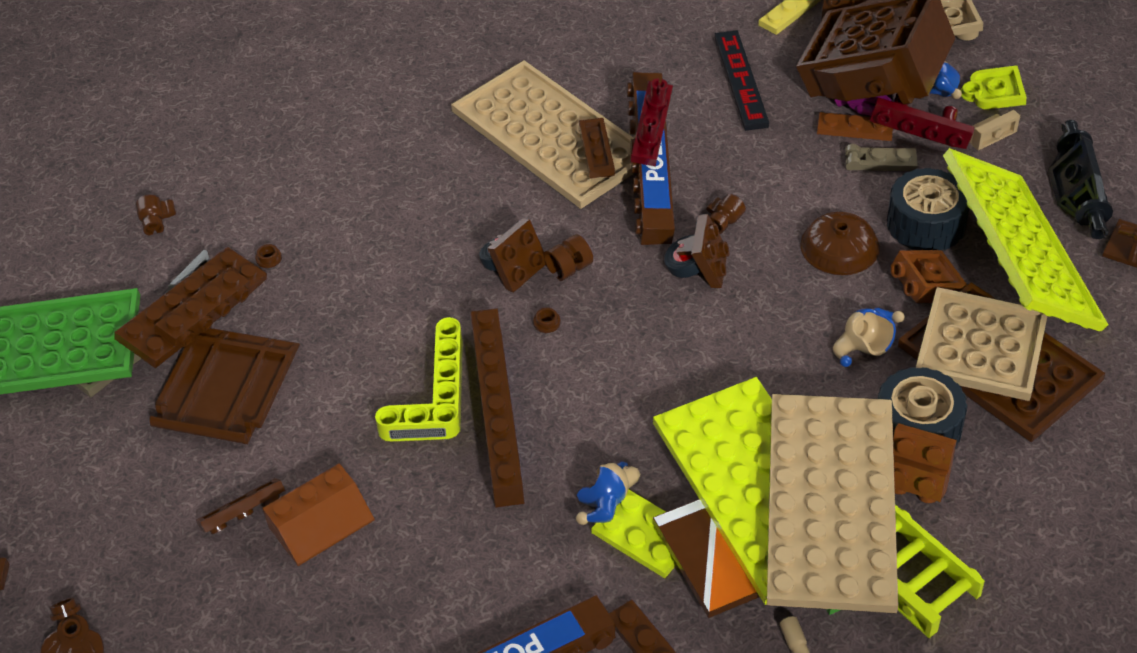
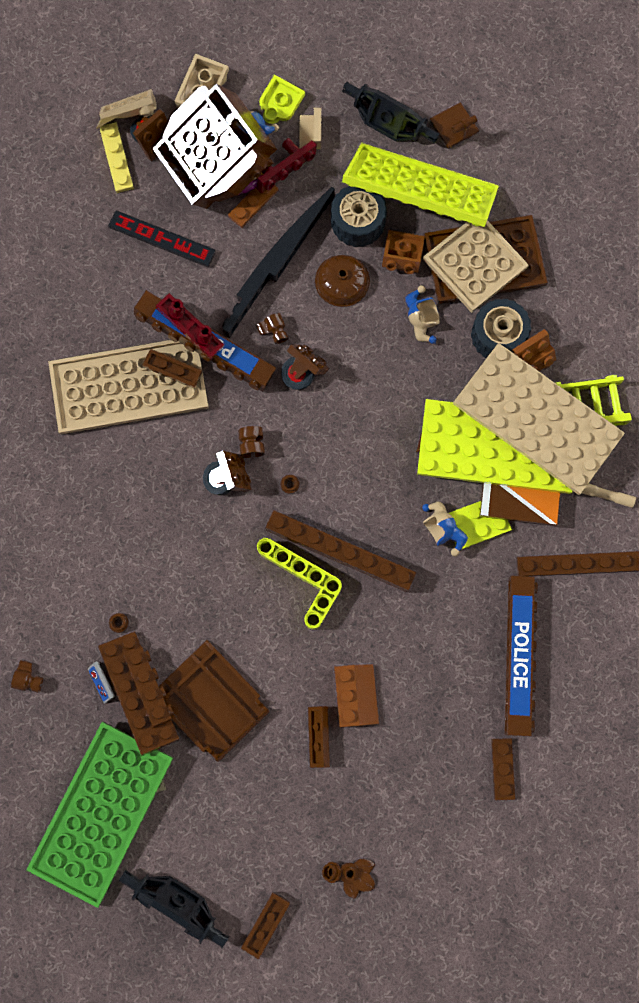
camera: 60 degrees left, 30 degrees up
(795, 173) = (276, 261): none -> black slope
(880, 158) = (291, 207): dark tan plate -> none

